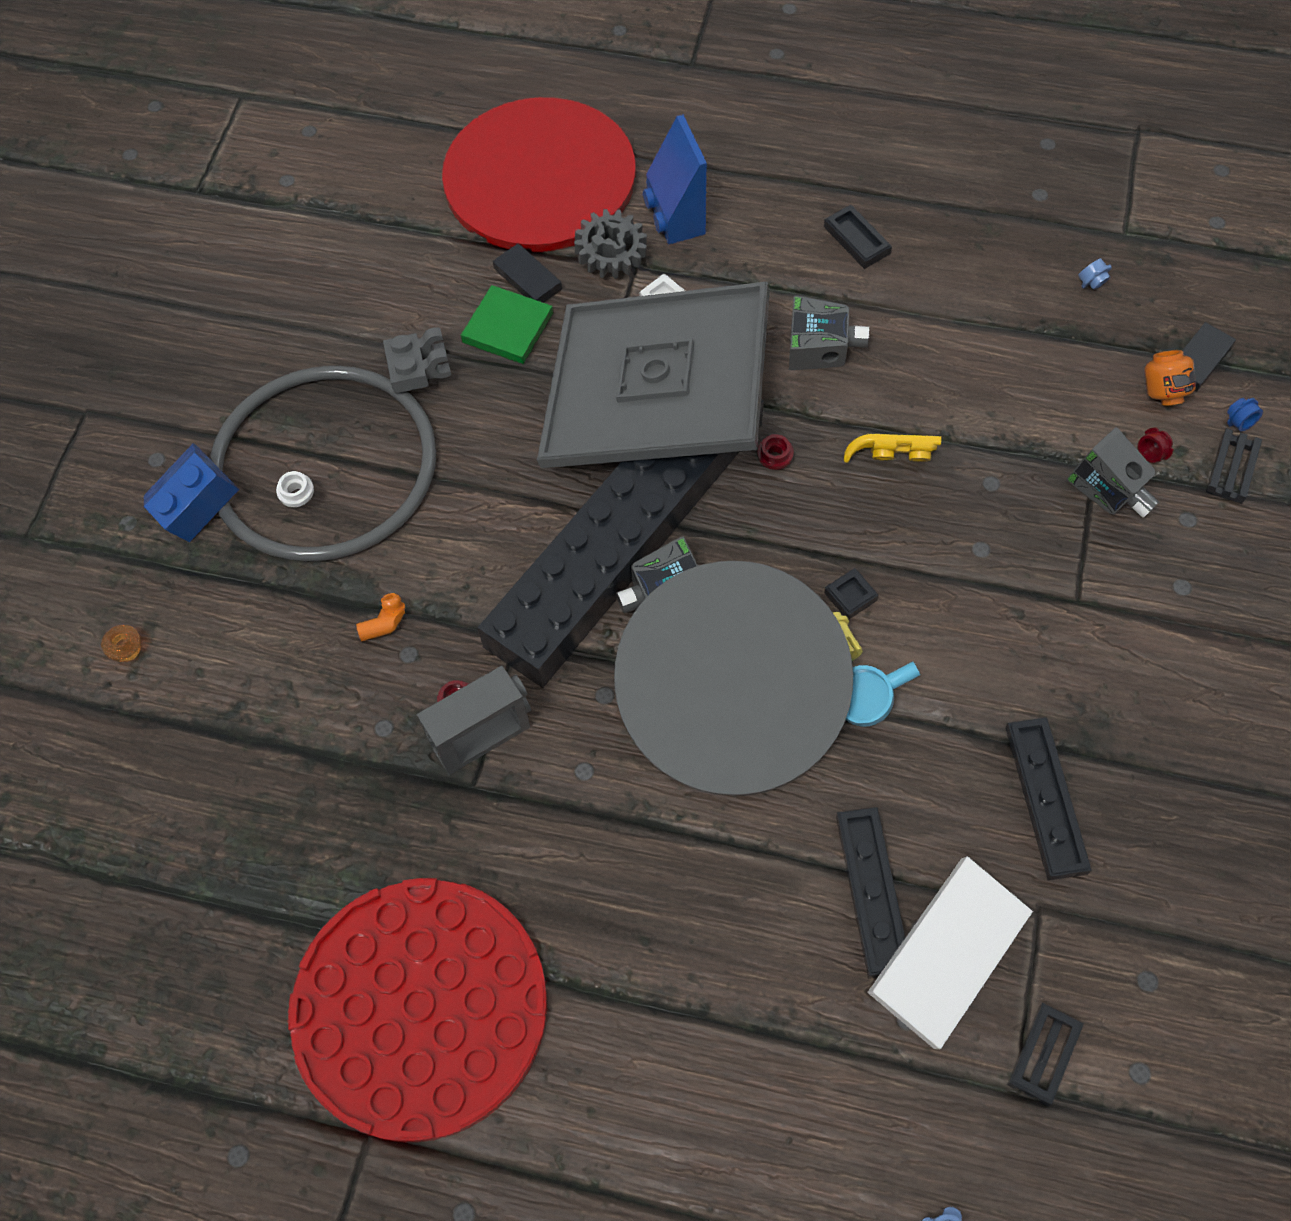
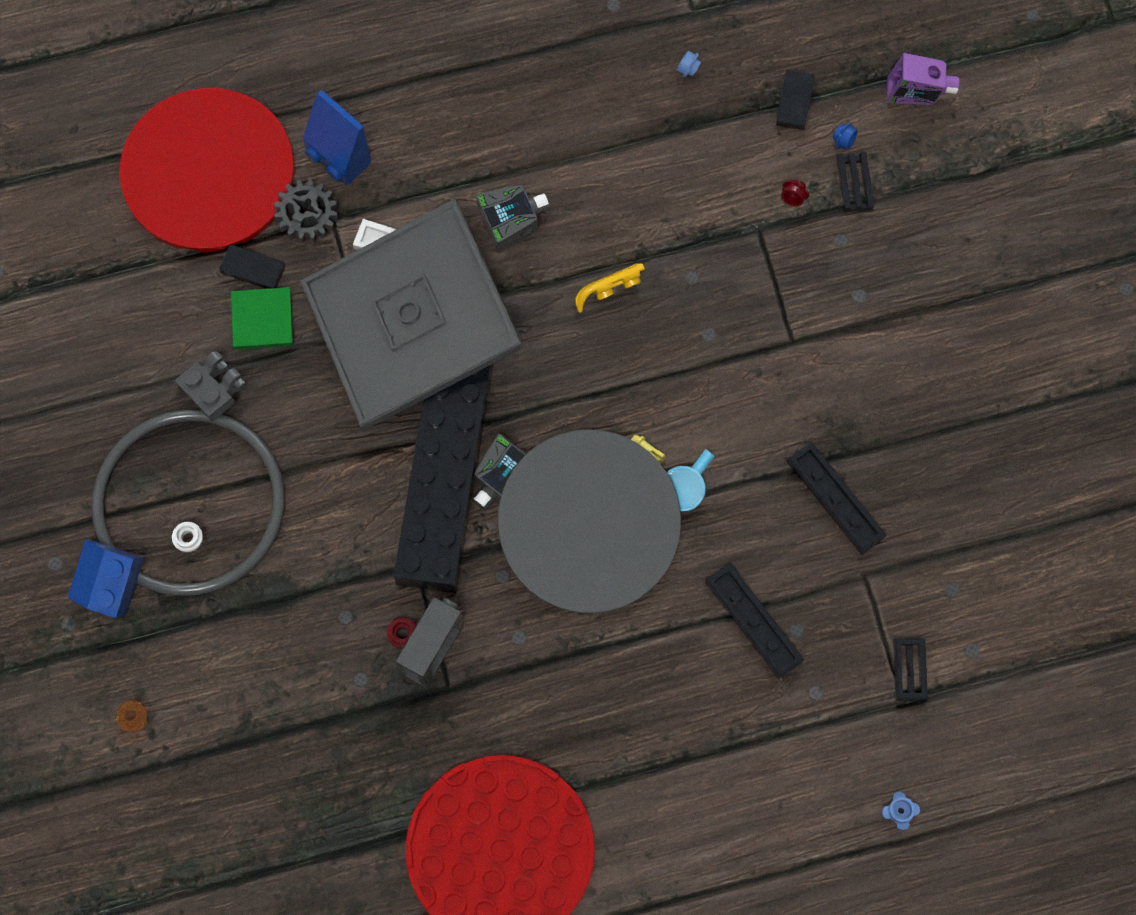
camera: 30 degrees left, 10 degrees up
(387, 620) = (316, 601): orange arm -> none
(778, 444) = (530, 322): dark red plate -> none
(851, 593) = (635, 415): black tile -> none
(857, 236) = (492, 111): black tile -> none
(950, 953) = (823, 635): white tile -> none
(1115, 475) = (778, 235): dark grey torso -> none
(1170, 377) = (781, 133): orange head -> none

